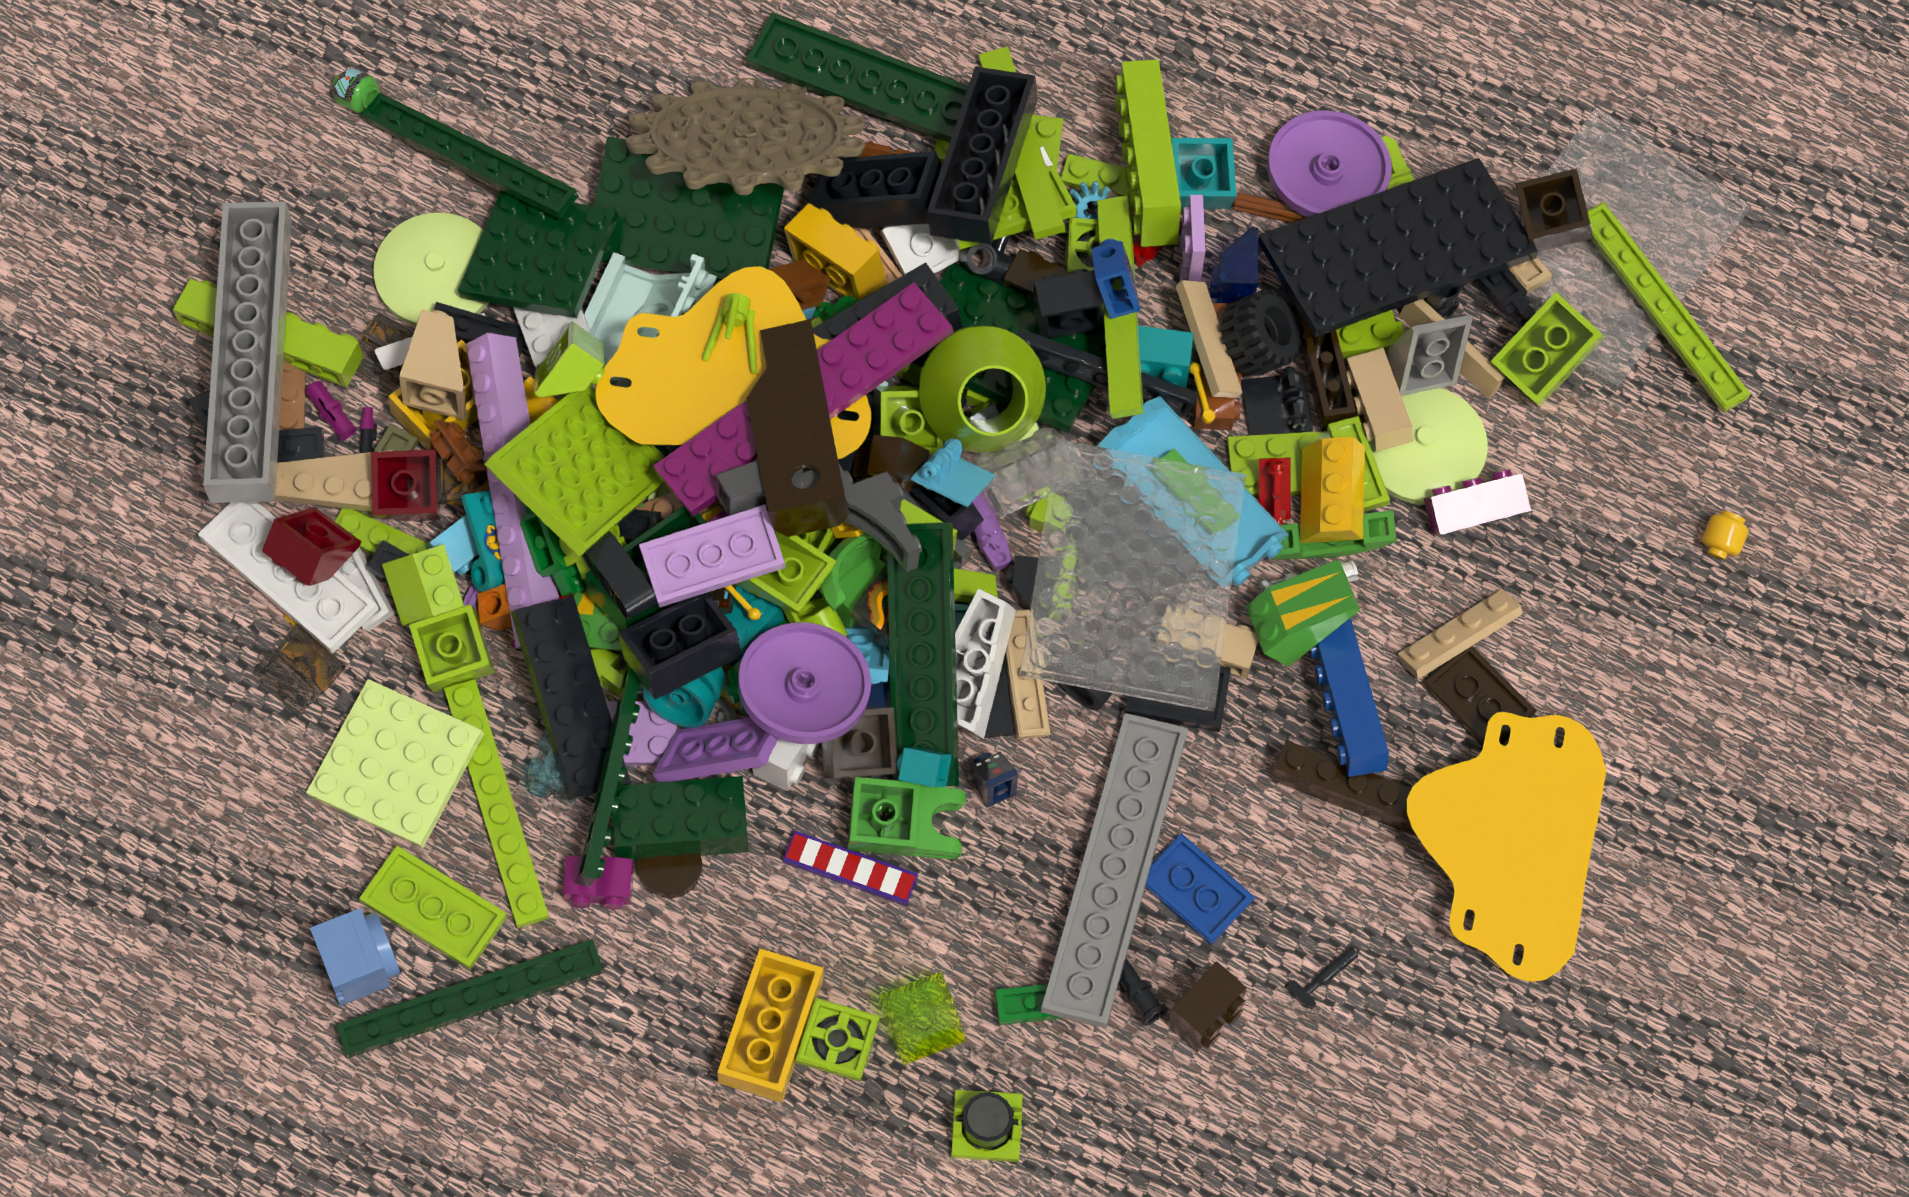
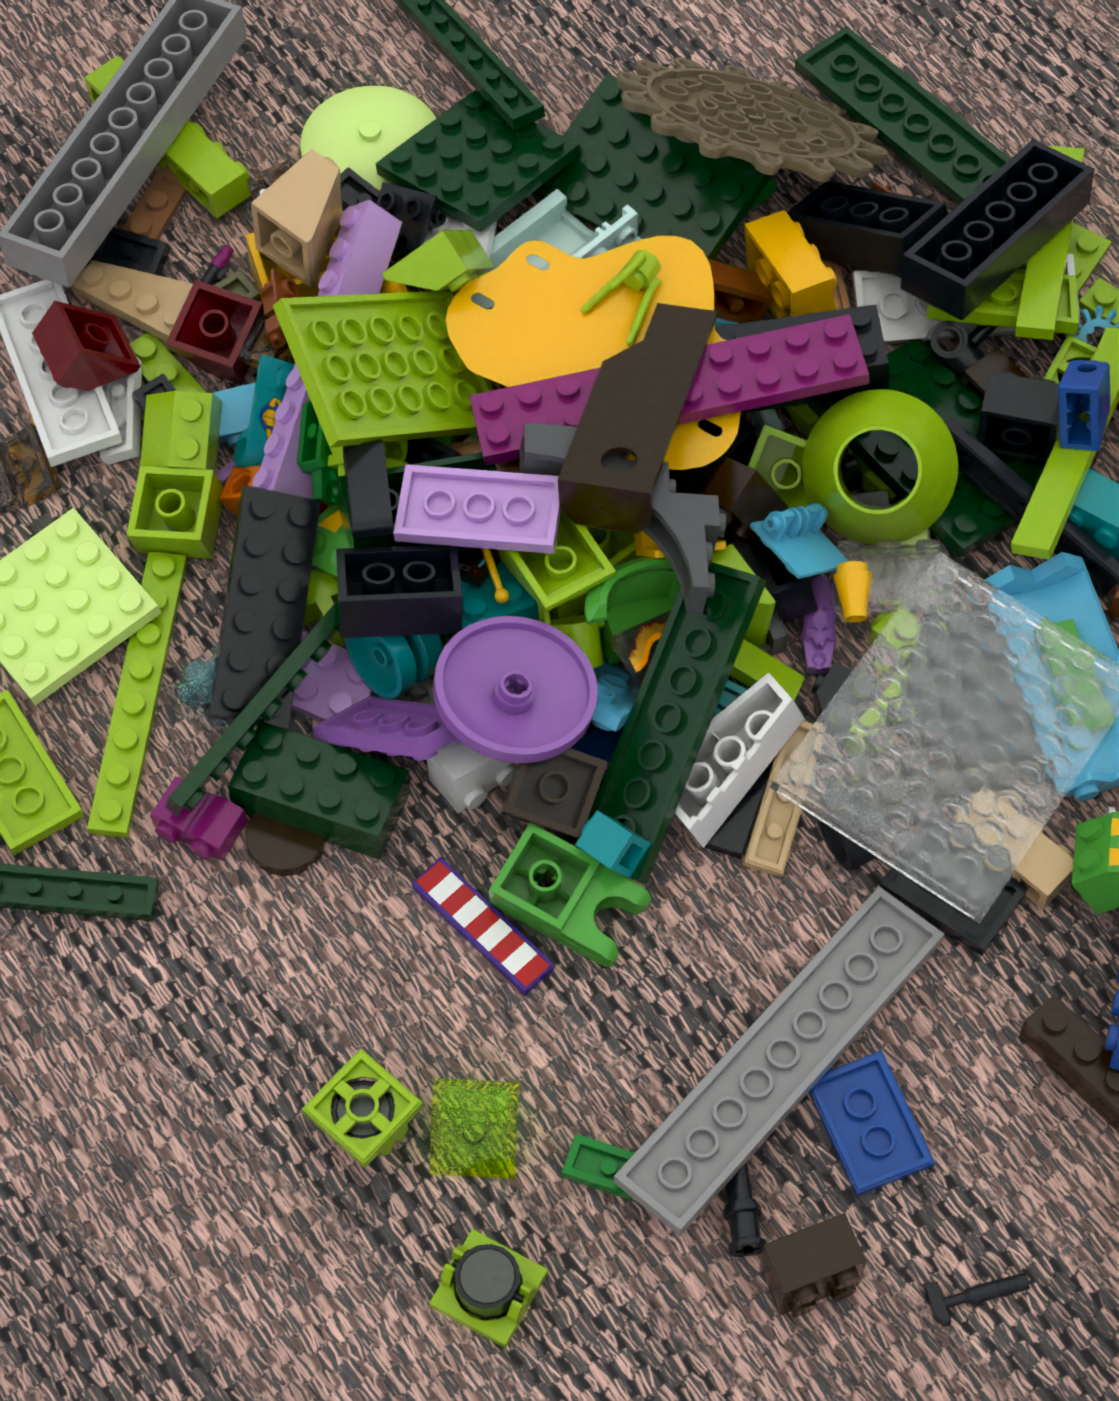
camera: 30 degrees right, 5 degrees down
(330, 410) = (189, 235): magenta pin -> none
(512, 321) = (415, 211): none -> black hinge
(770, 1025) = (295, 1057): yellow brick -> none
(994, 778) = (691, 895): dark blue slope -> none
(1008, 496) = (853, 589): none -> yellow cone

